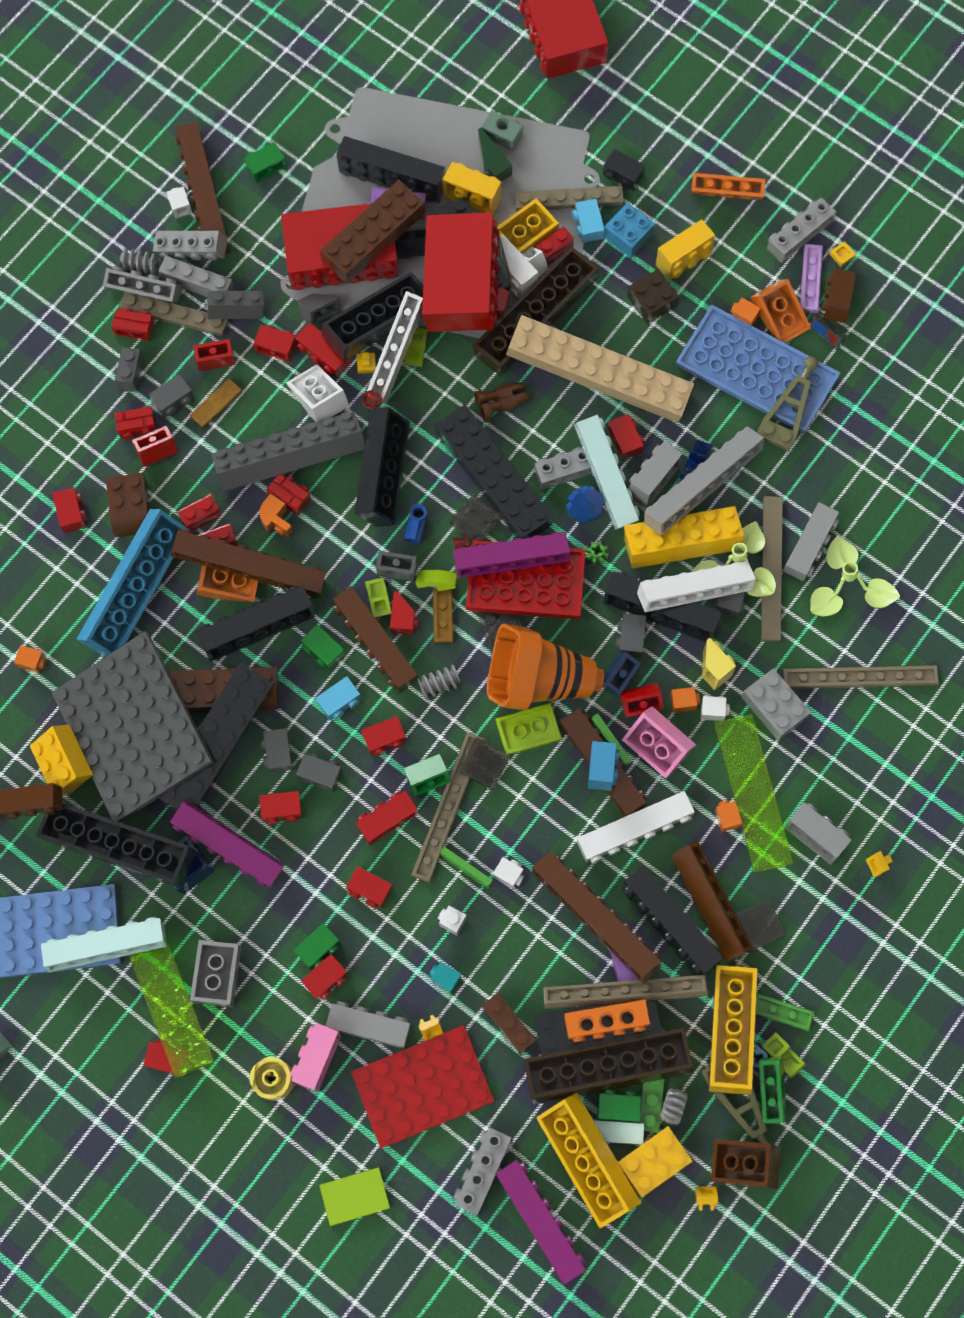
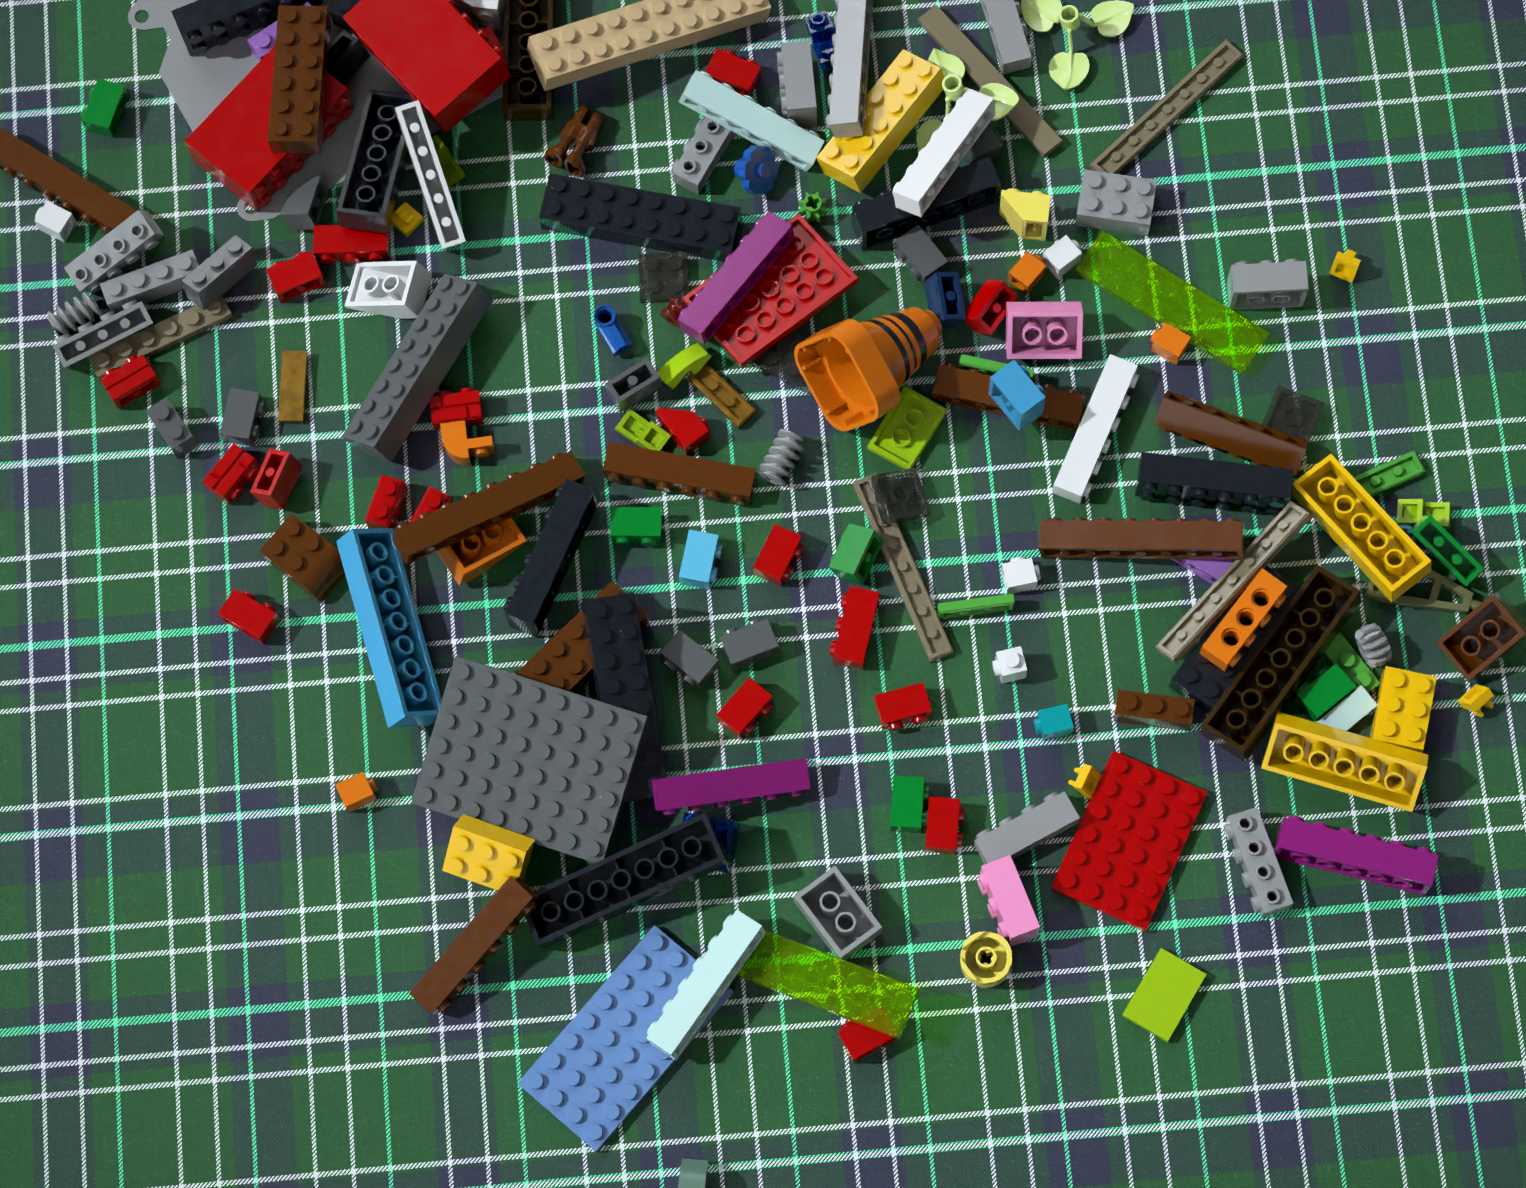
camera: 40 degrees left, 0 degrees up
(214, 355) = (247, 339): red brick -> none
(369, 397) = (455, 242): clear red wheel -> none
(382, 467) = (527, 302): black brick -> none

